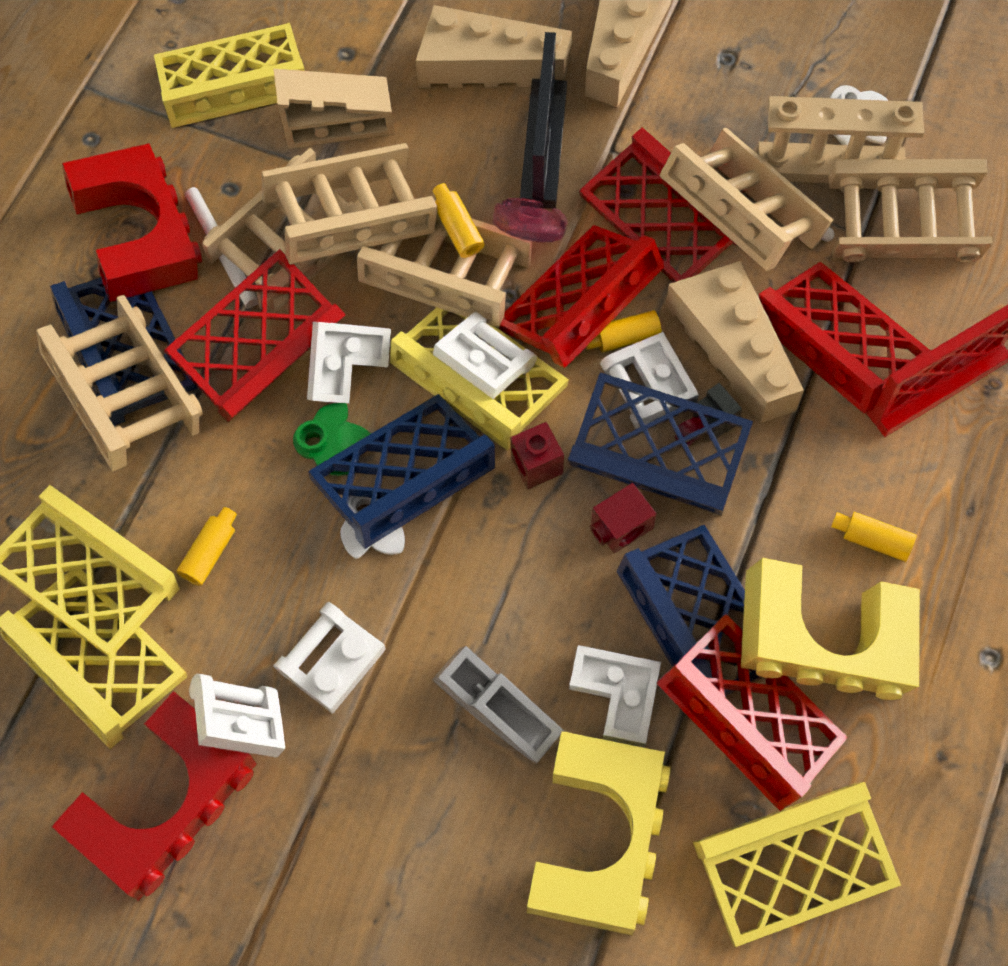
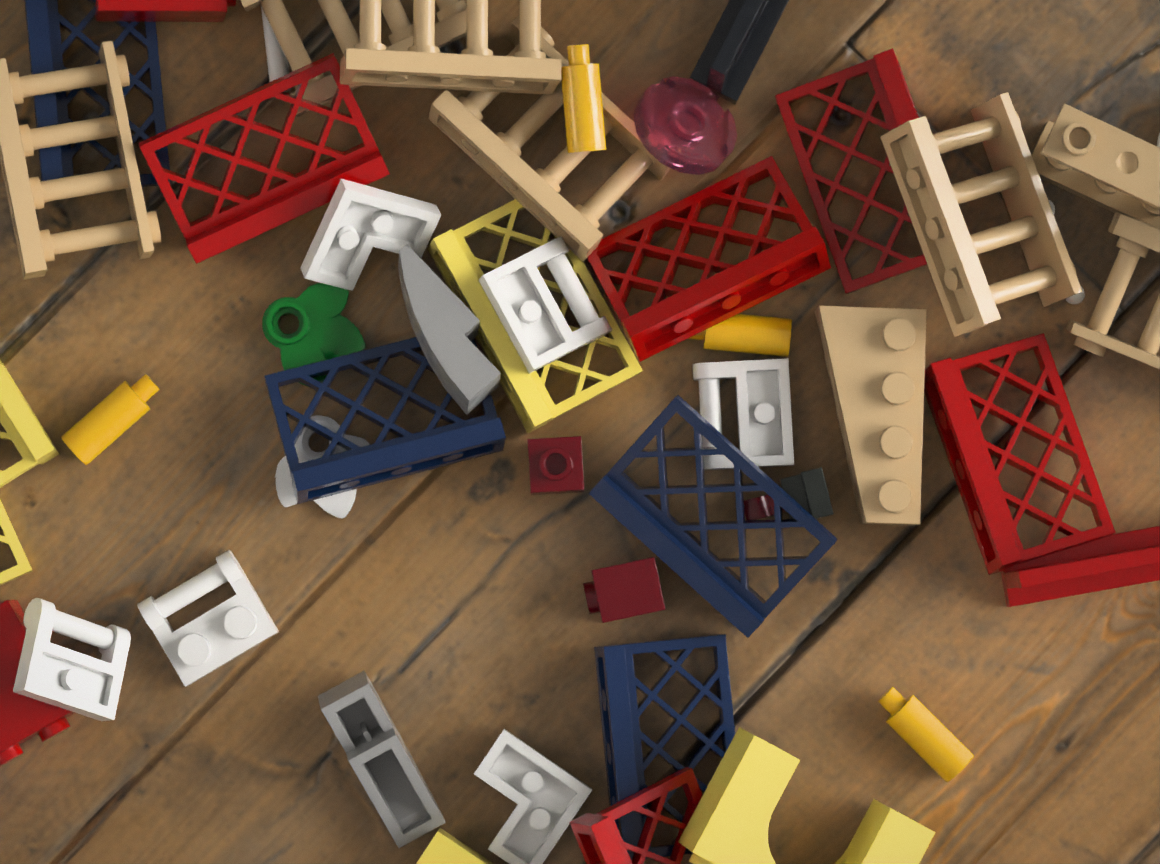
camera: 20 degrees right, 20 degrees up
(424, 396) = (445, 333): none -> light grey slope

